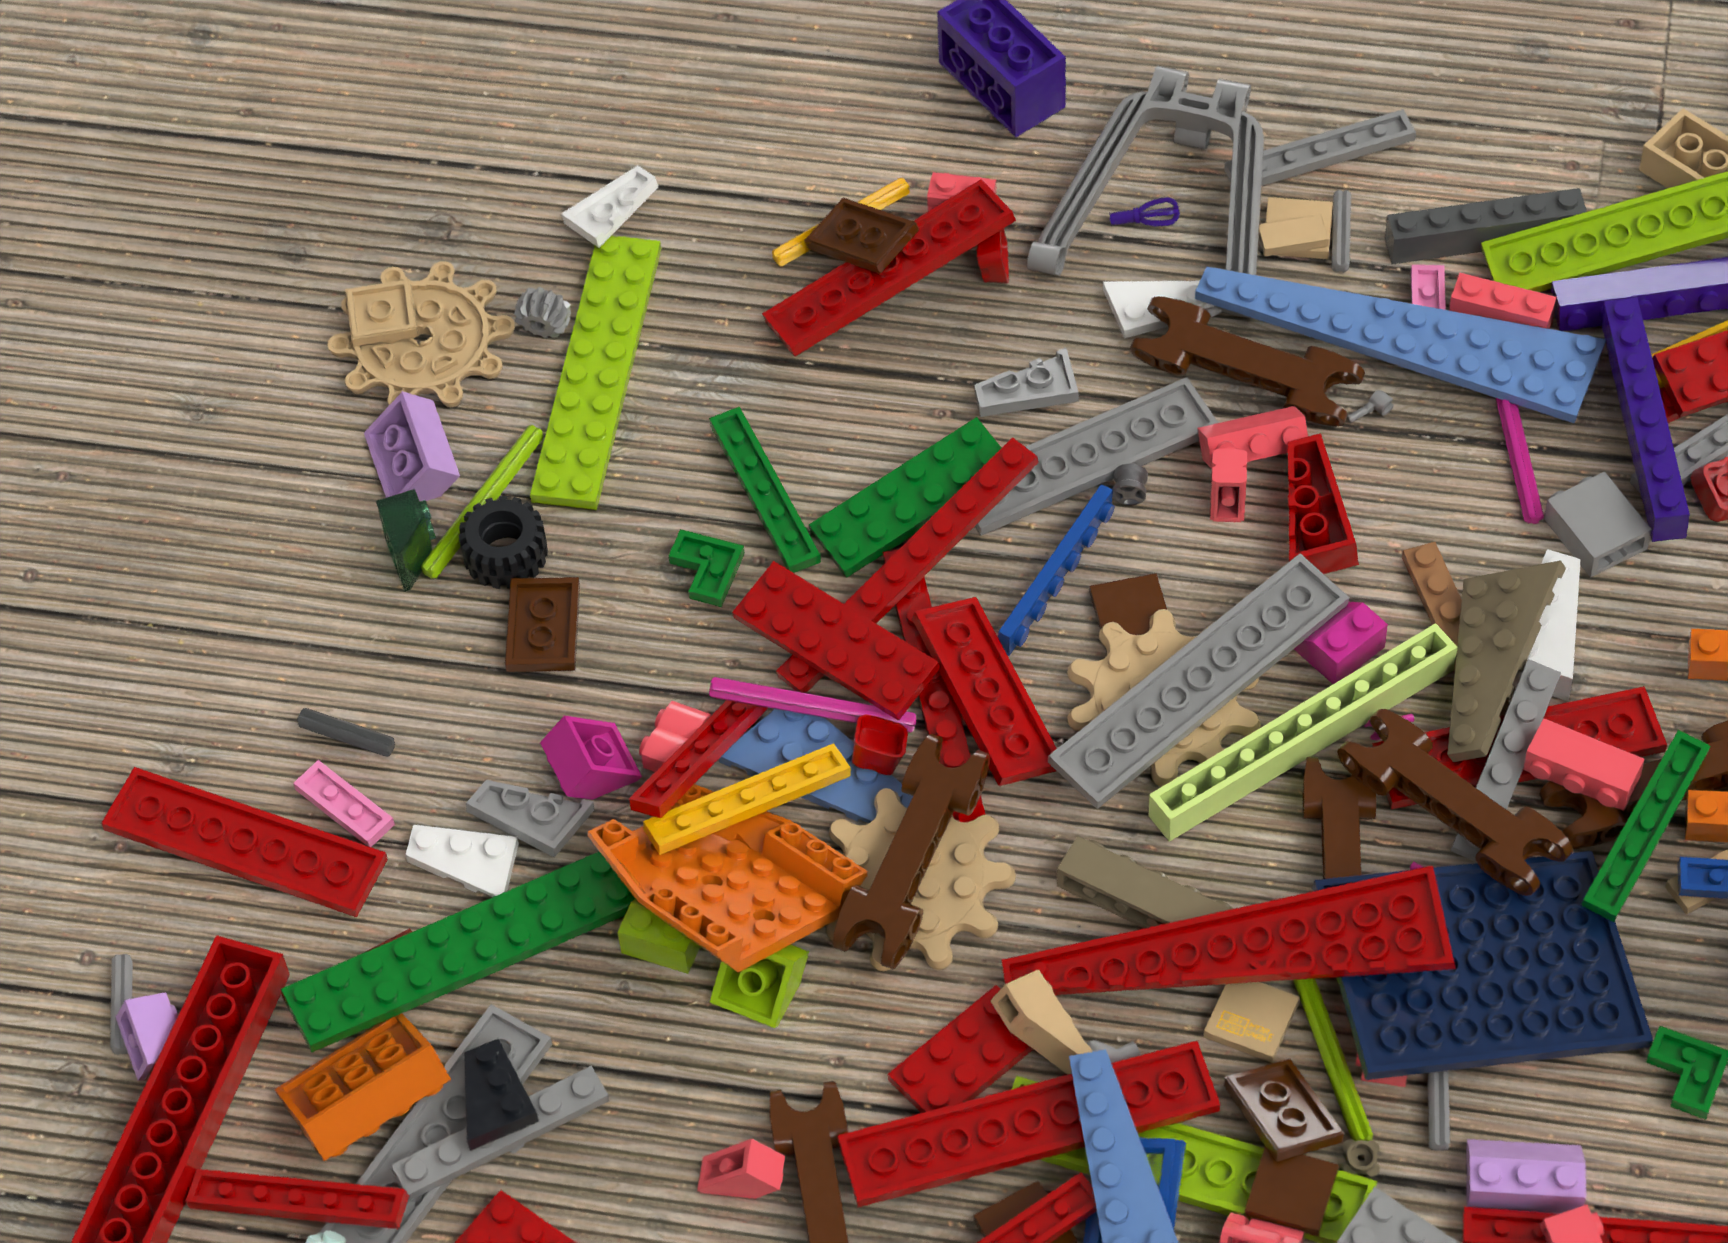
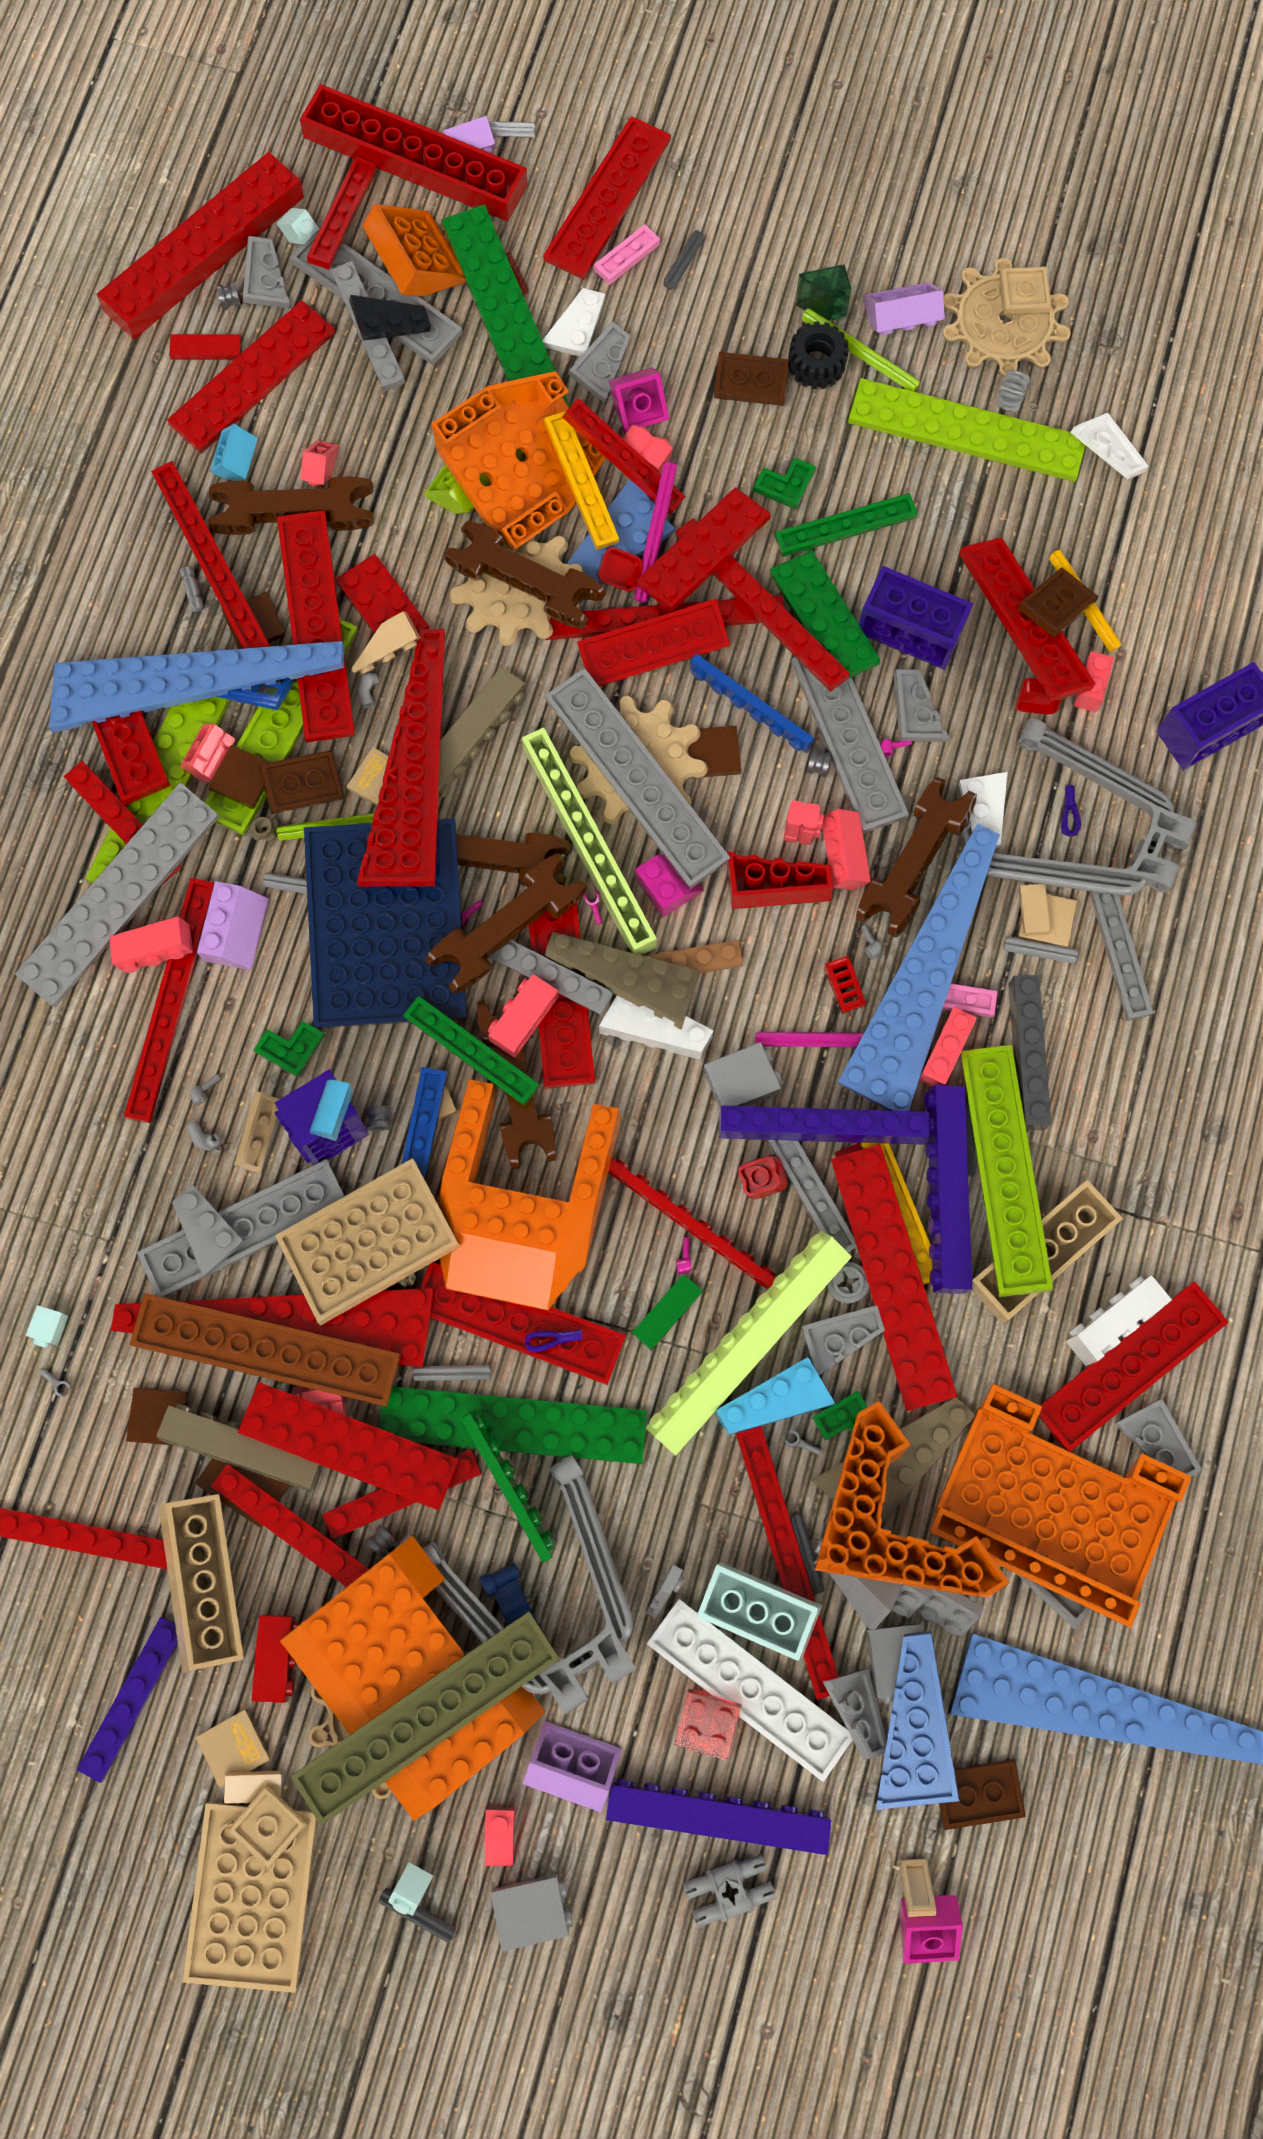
camera: 90 degrees right, 20 degrees up
(911, 381) = (914, 617): none -> dark purple brick
(1088, 412) = (887, 746): none -> dark pink hand
(1423, 445) = (832, 978): none -> red slope

